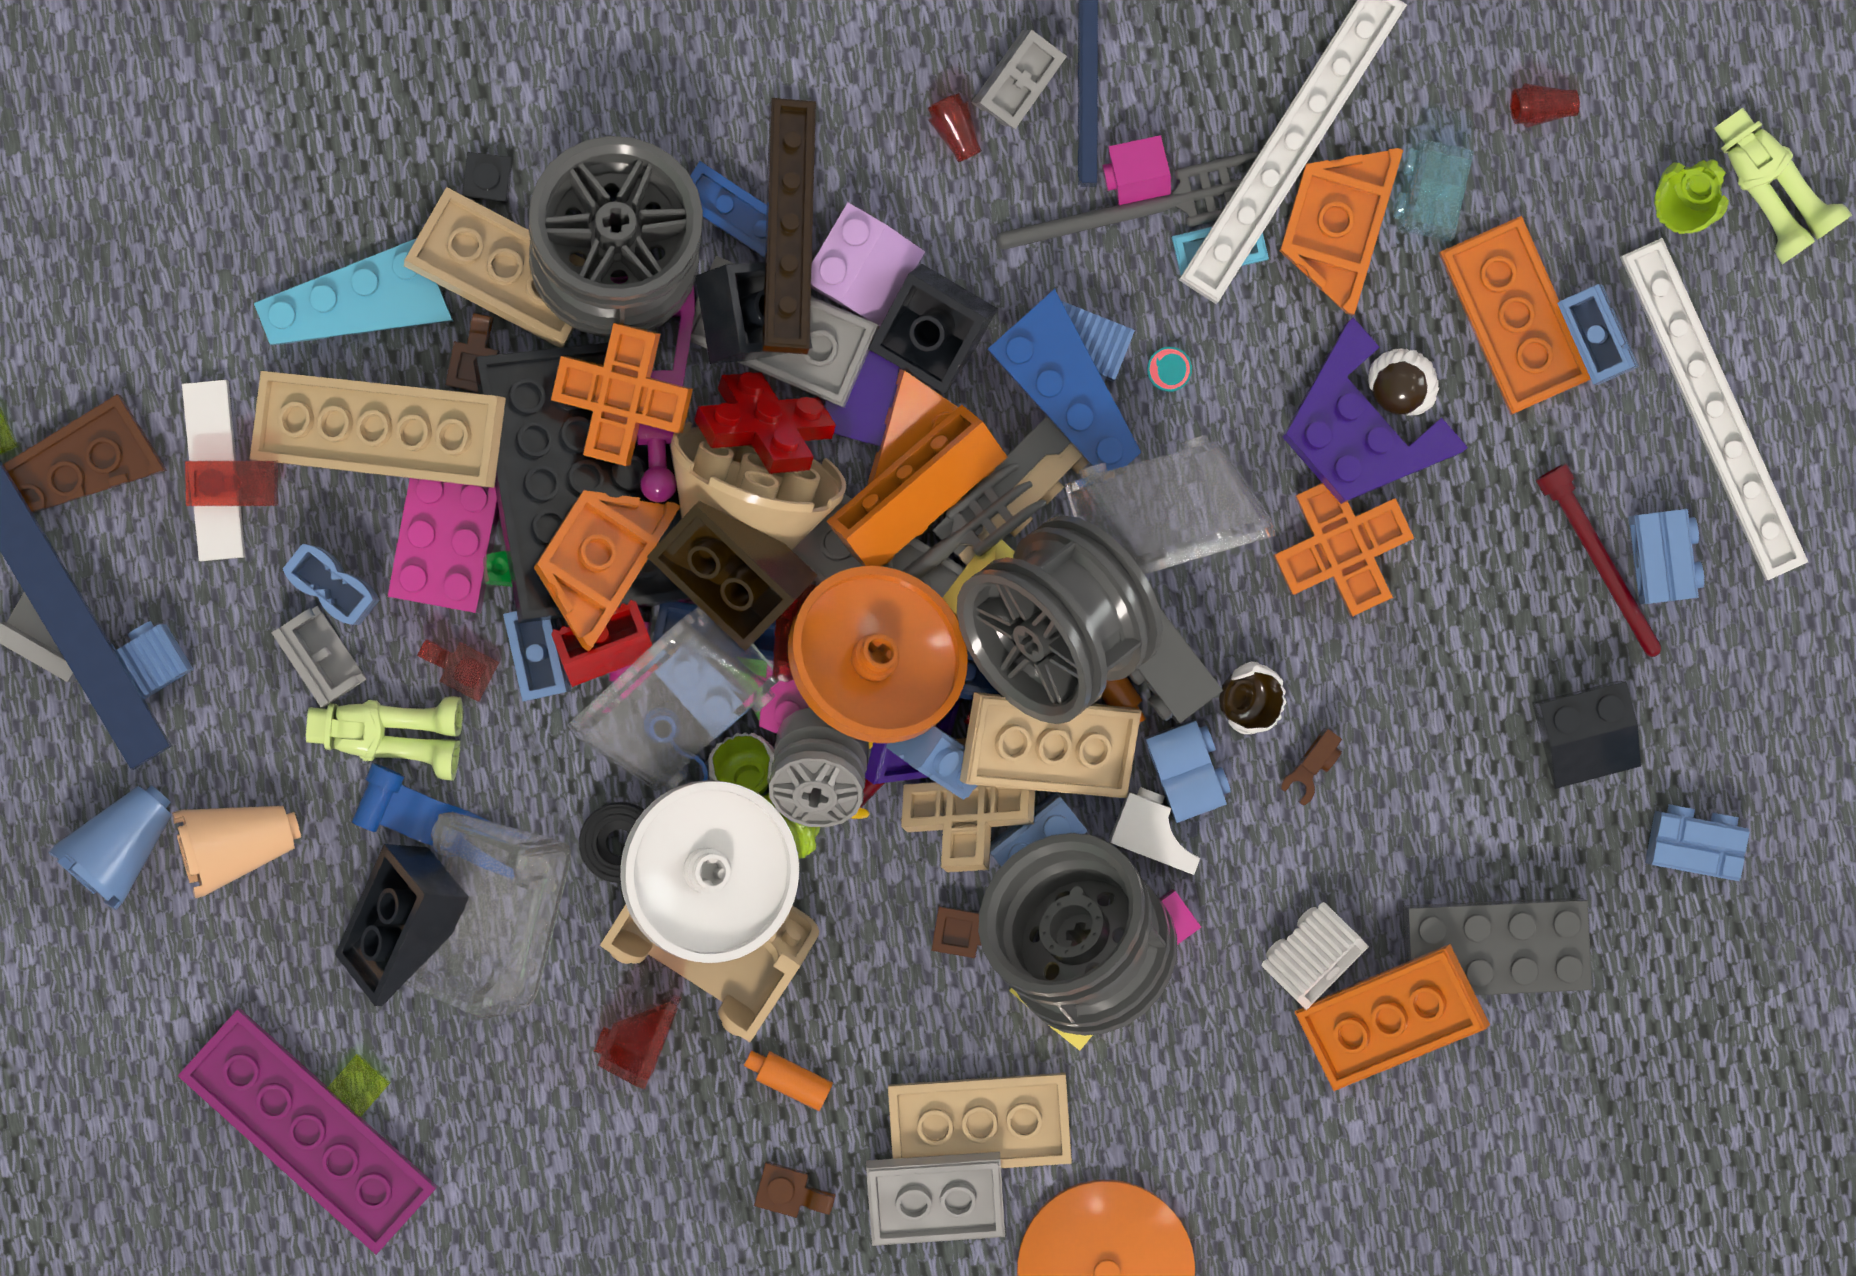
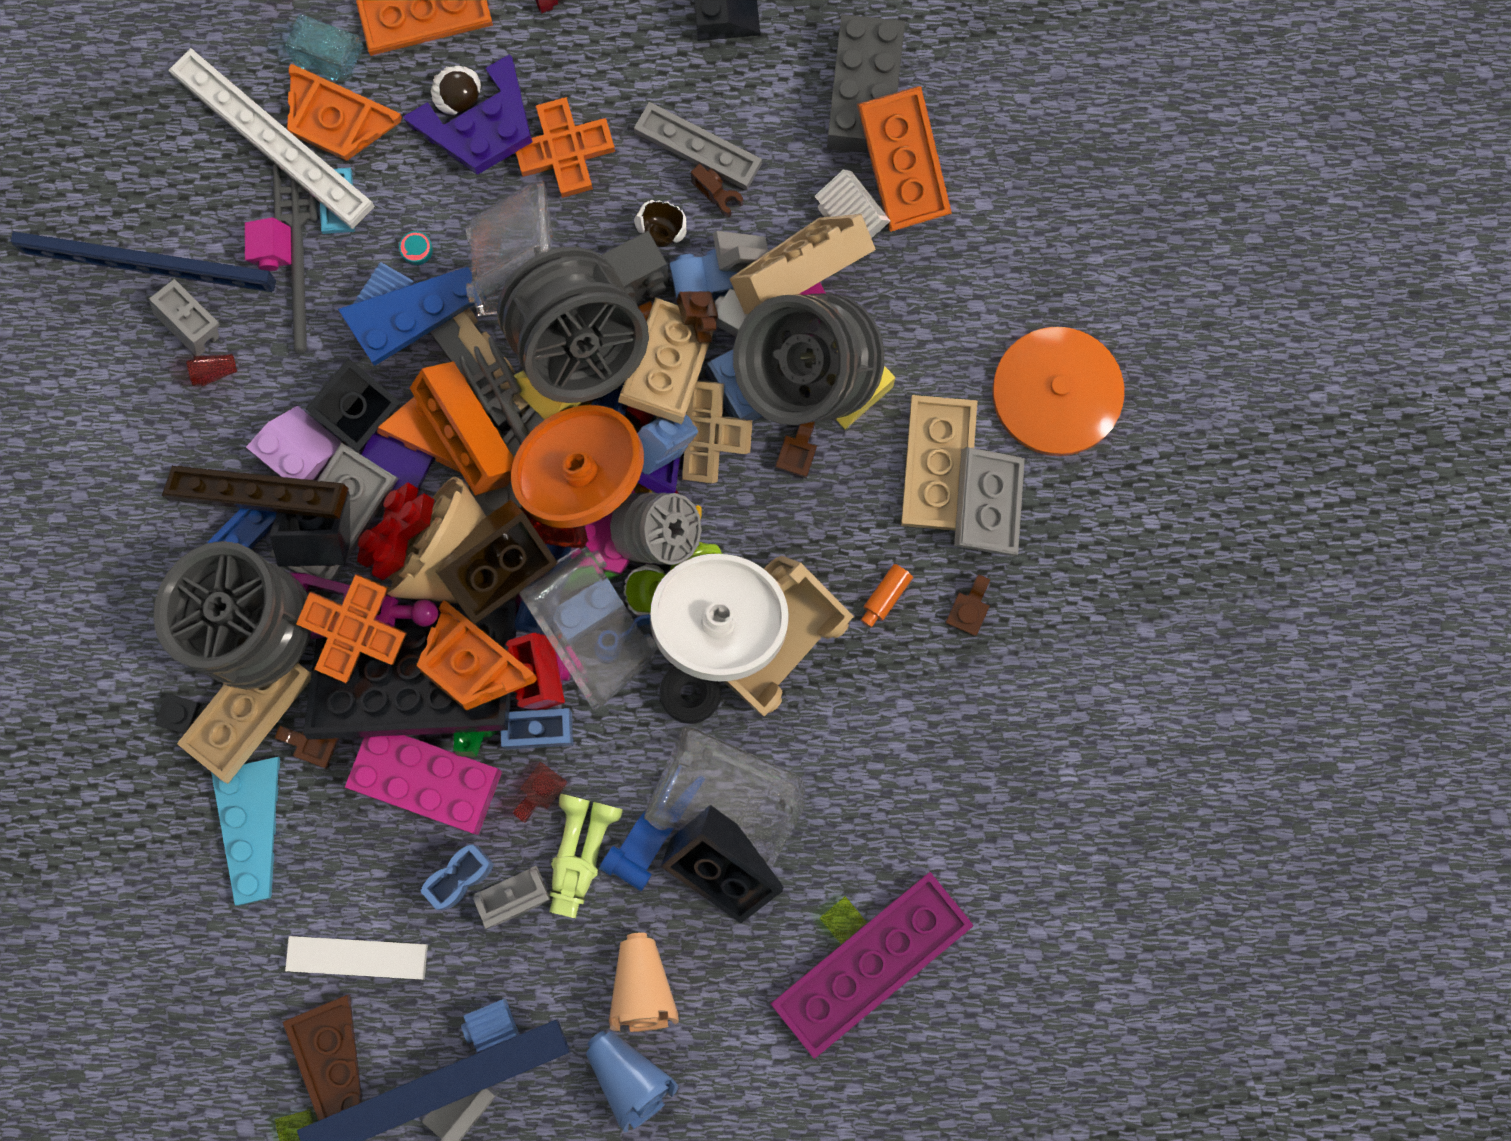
camera: 80 degrees left, 10 degrees down
(231, 482) = (366, 942): clear red plate -> none
(378, 428) = (344, 819): tan plate -> none
(637, 1041) = (840, 698): clear red slope -> none
(1129, 774) = (698, 310): none -> reddish brown plate
(1216, 903) = (803, 260): none -> tan wedge
(1226, 822) = (738, 250): none -> light grey panel
(1374, 729) = (697, 145): none -> light grey plate

